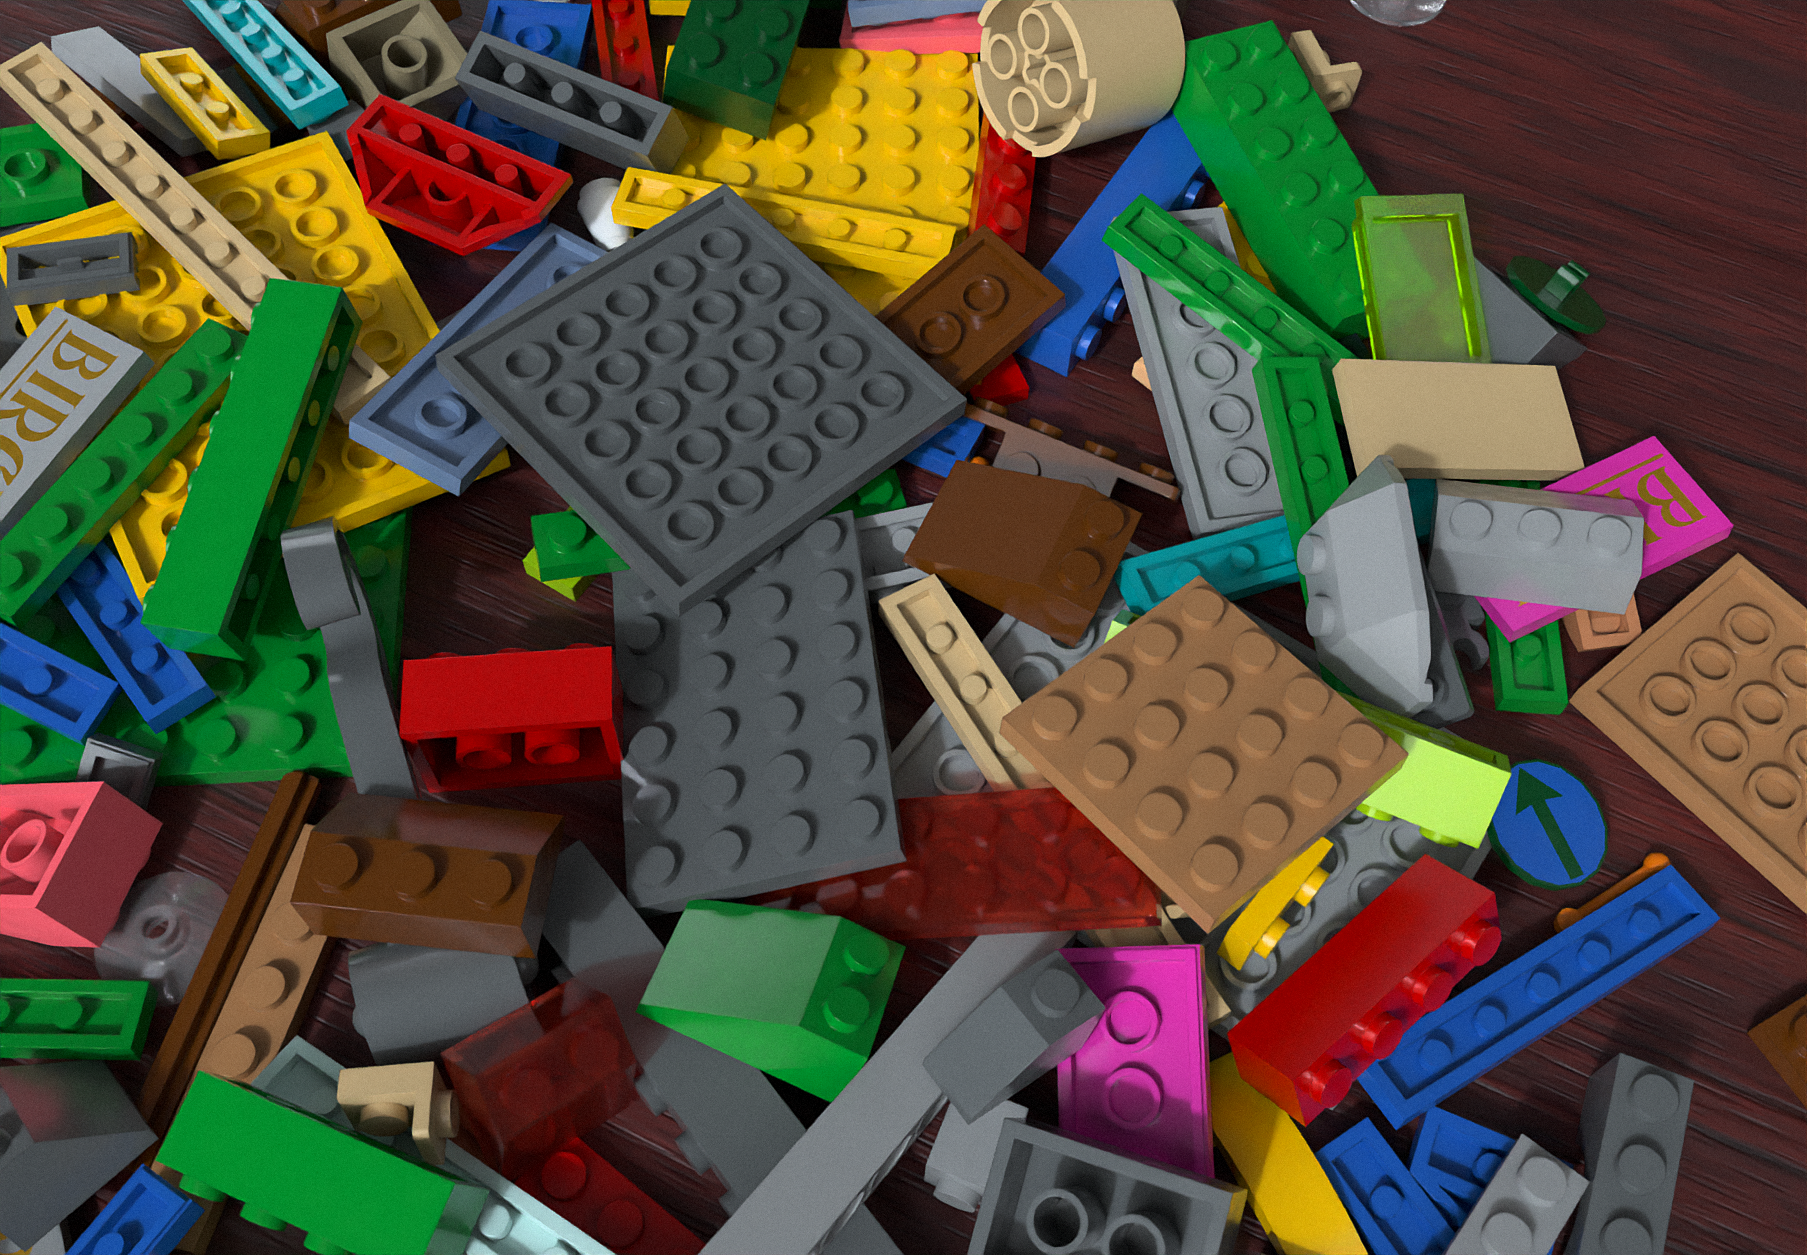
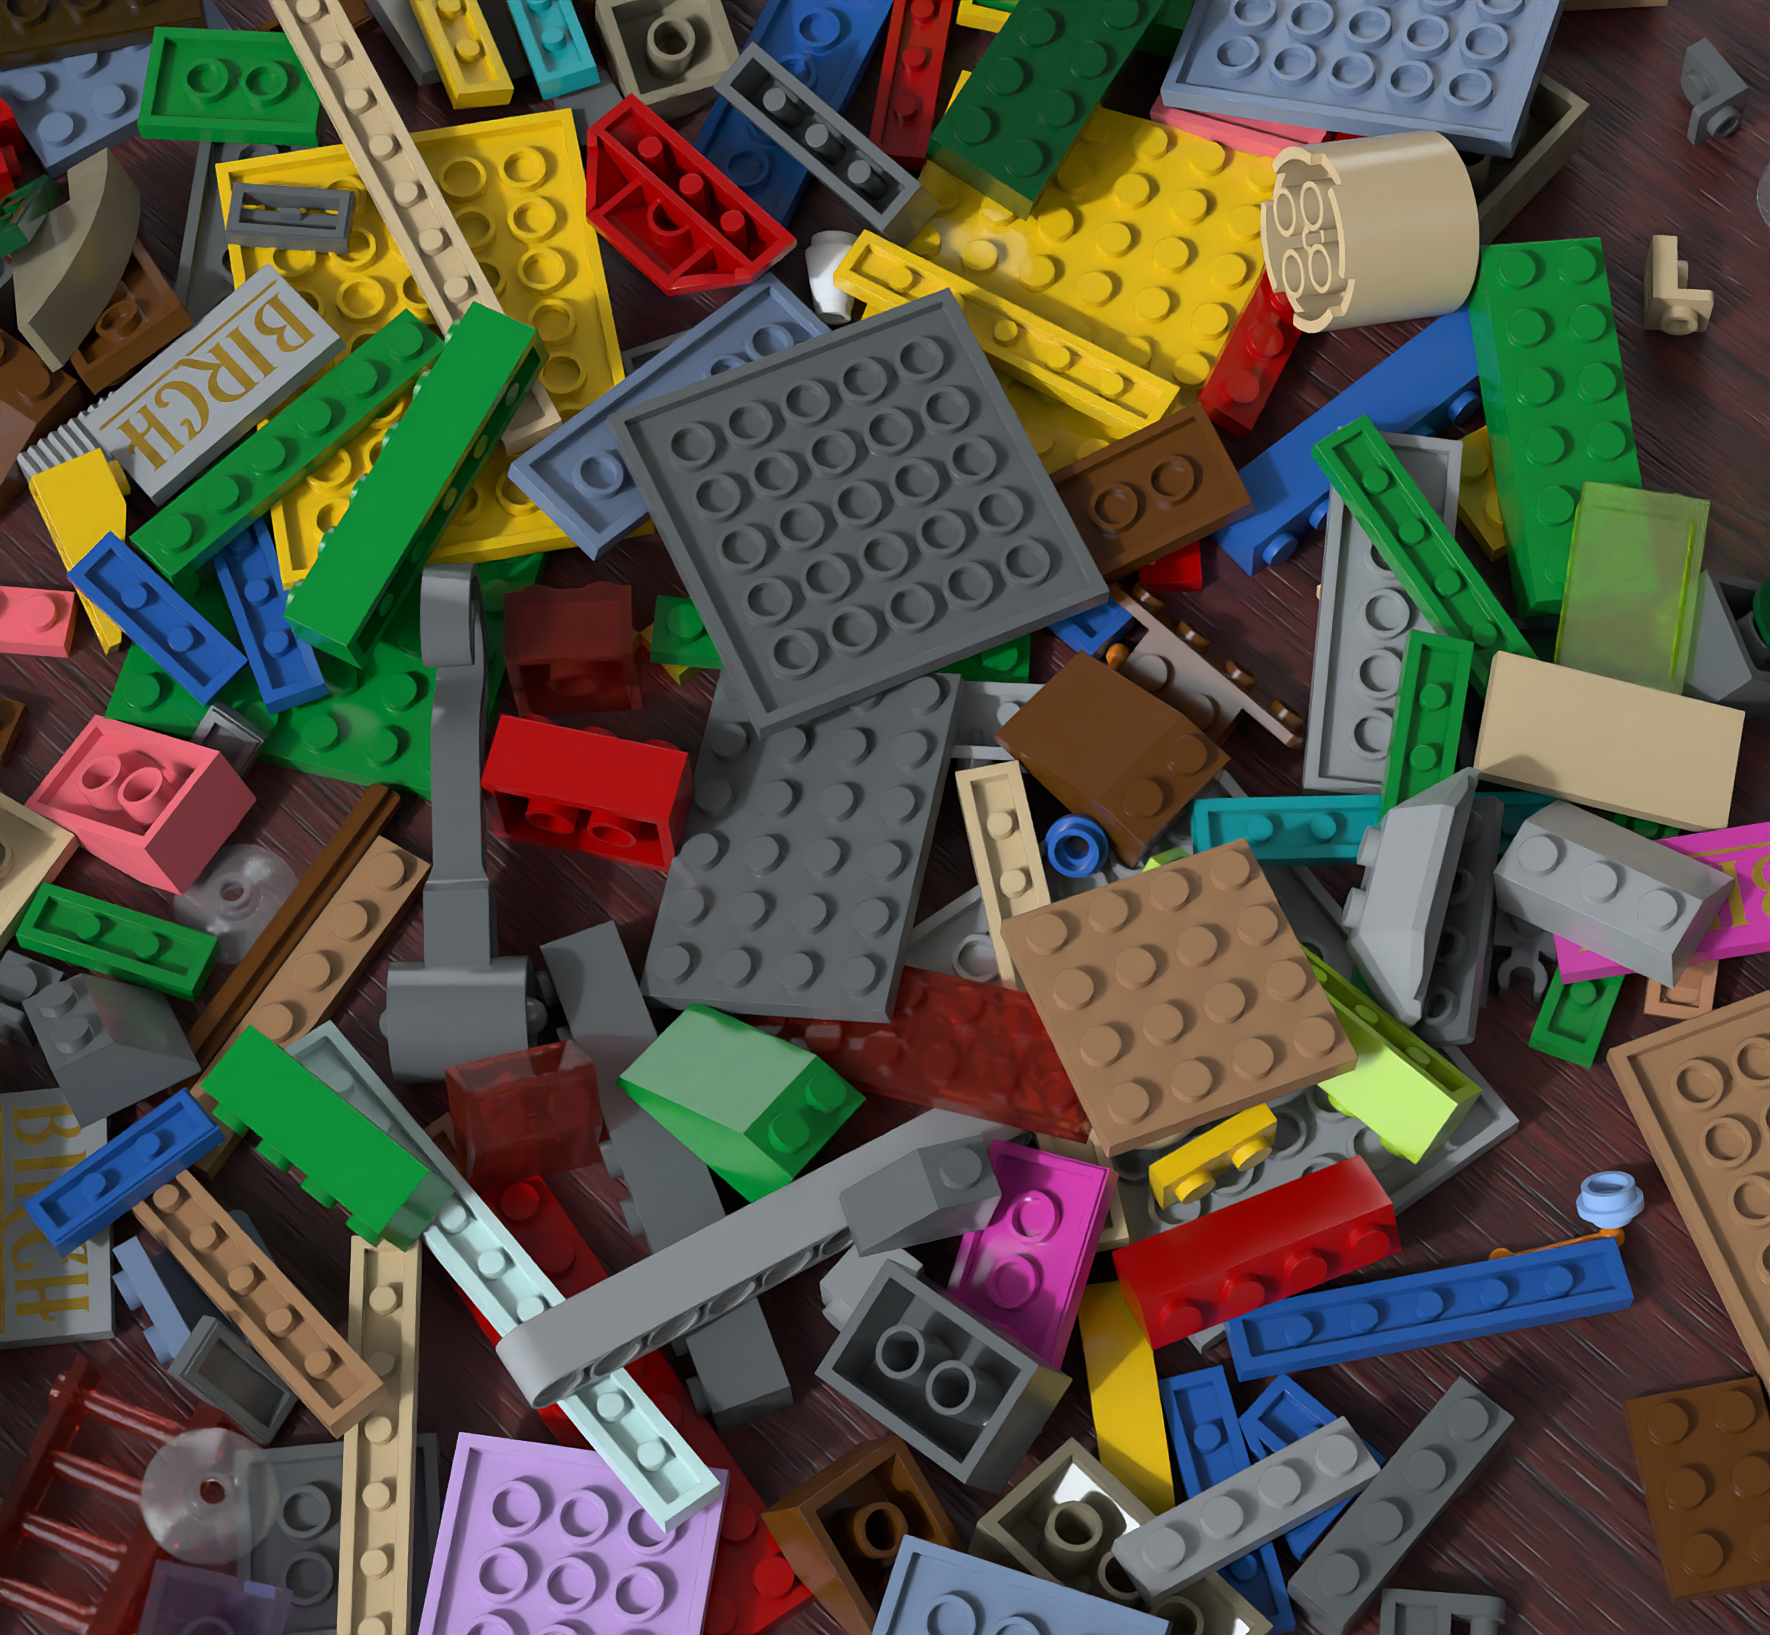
camera: 25 degrees right, 5 degrees up
(398, 1097) = (403, 1095): tan bracket -> none
(430, 874) = (476, 915): reddish brown slope -> none
(460, 585) = (573, 649): none -> clear red brick
(1019, 656) = (1072, 862): none -> blue plate
(1549, 827) = (1510, 1165): blue piece -> none
(1645, 829) = (1609, 1199): none -> light blue plate

